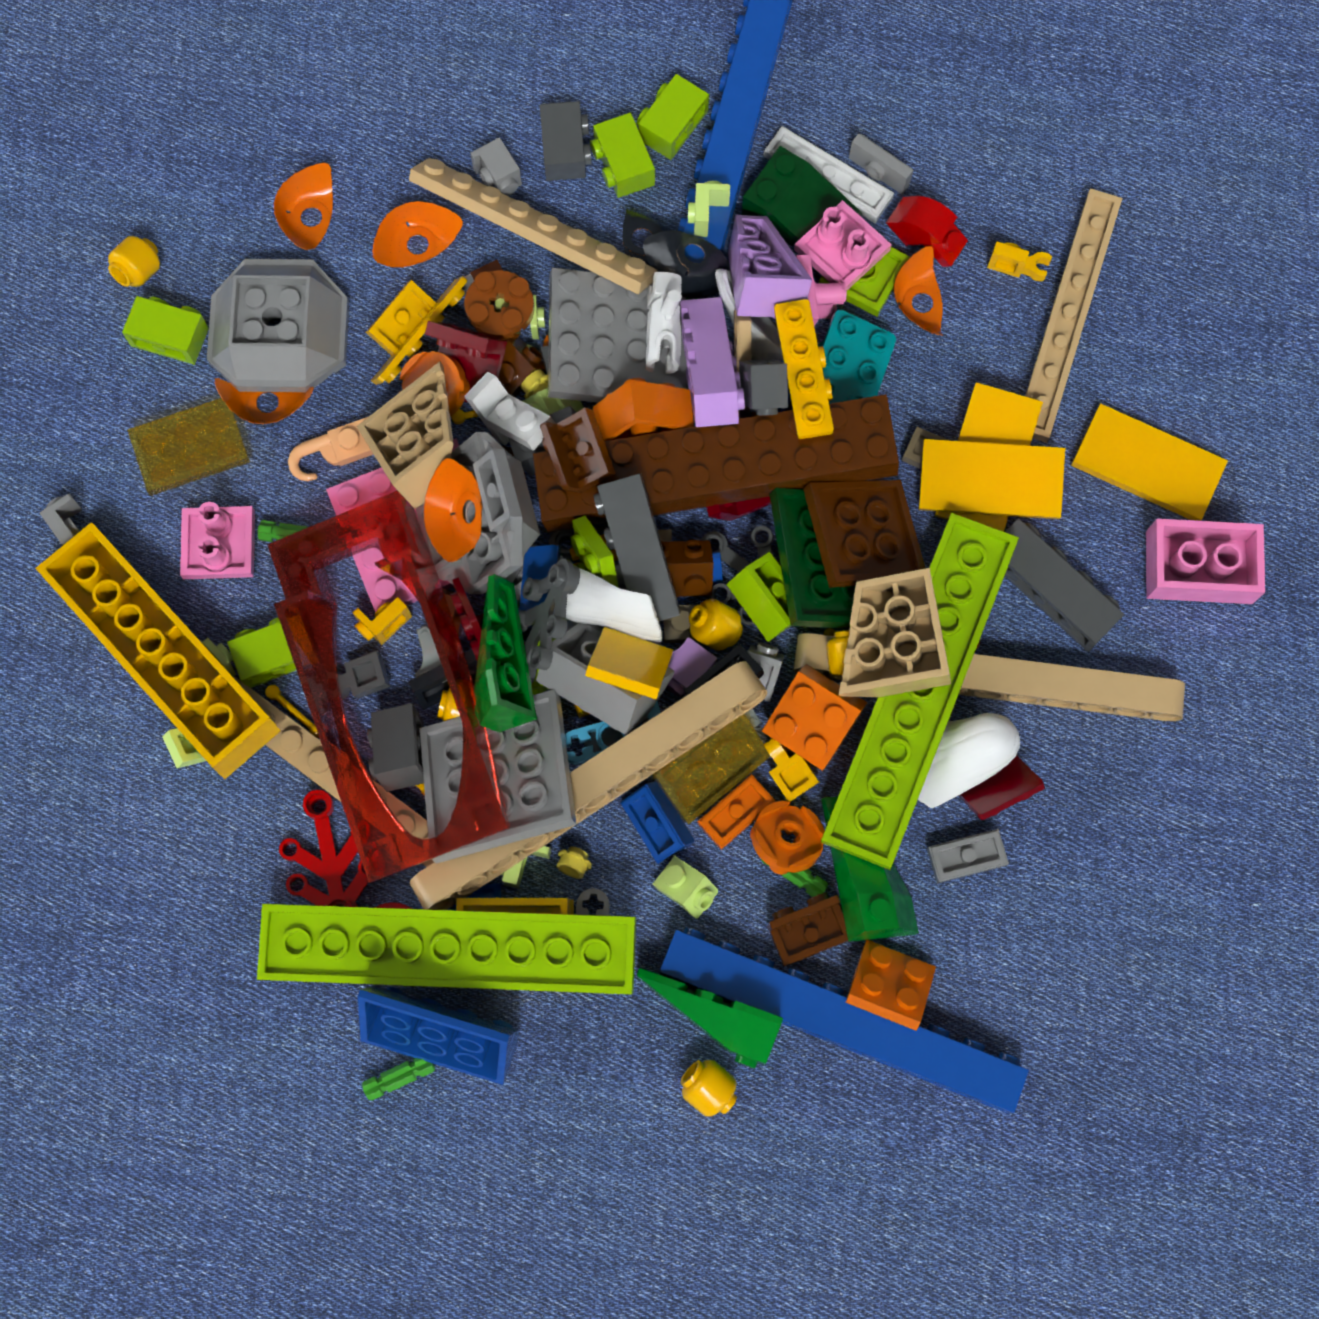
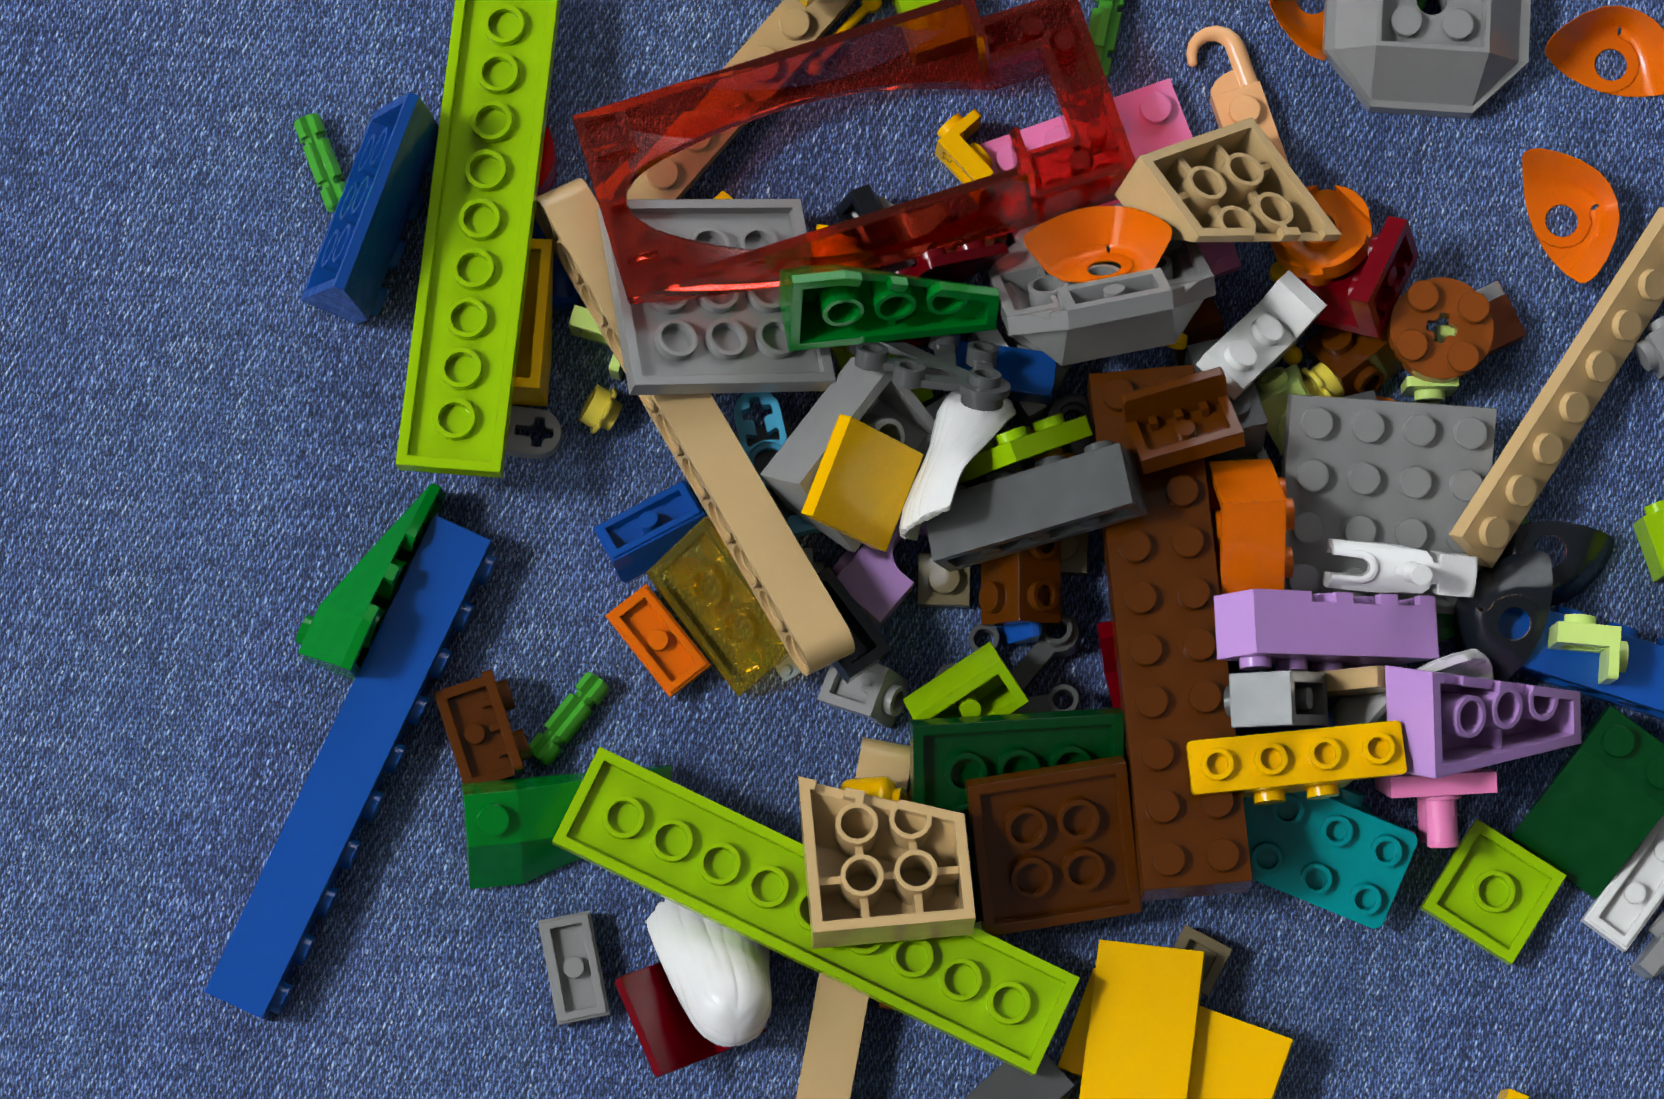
camera: 90 degrees right, 5 degrees up
(331, 866) = (614, 75): red plant -> none
(363, 676) = (885, 126): dark grey plate -> none
(396, 747) = (774, 165): dark grey brick -> none
(405, 322) = (1431, 198): yellow bracket -> none
(686, 887) = (554, 563): yellowish green bracket -> none
(709, 1088) = (274, 577): yellow head -> none
(715, 624) = (933, 626): yellow head -> none
(777, 852) = (587, 696): orange plate -> none
(792, 773) = (709, 724): yellow plate -> none
(813, 717) = (775, 744): orange brick -> none
(843, 245) = (1525, 855): bright pink plate -> none
(891, 985) = (396, 838): orange plate -> none
(915, 278) = (1482, 970): orange piece -> none
(930, 223) = (1558, 996): red brick -> none

